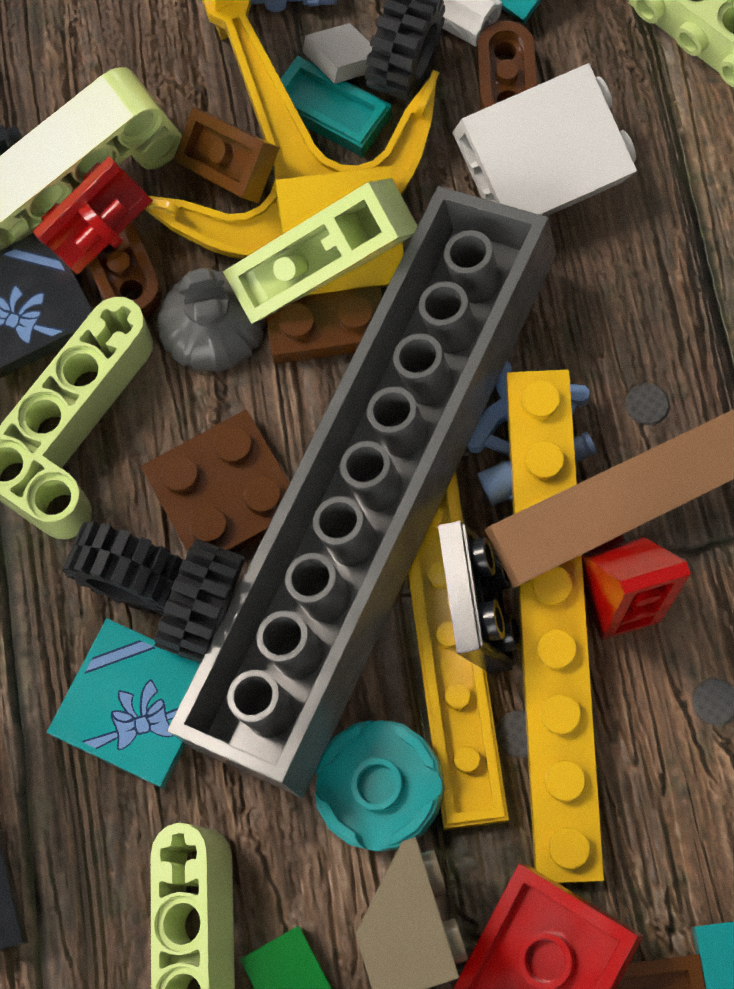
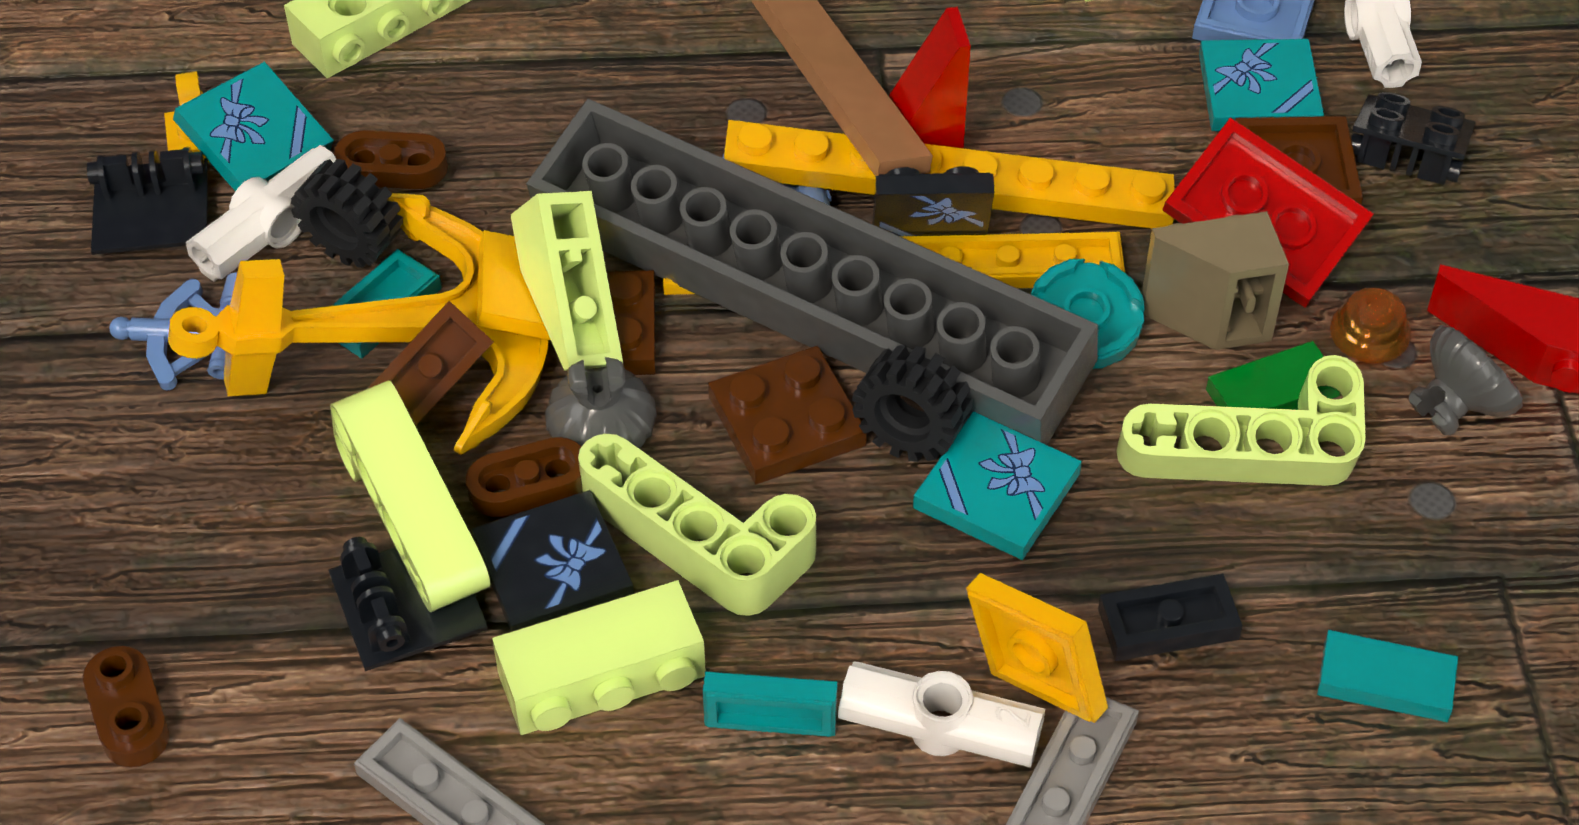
camera: 90 degrees left, 20 degrees down
(92, 215) = (493, 455): red hips -> none
(122, 567) = (870, 464): black tyre -> none
(338, 52) = (328, 278): light grey tile -> none
(547, 145) = (487, 125): white brick -> none

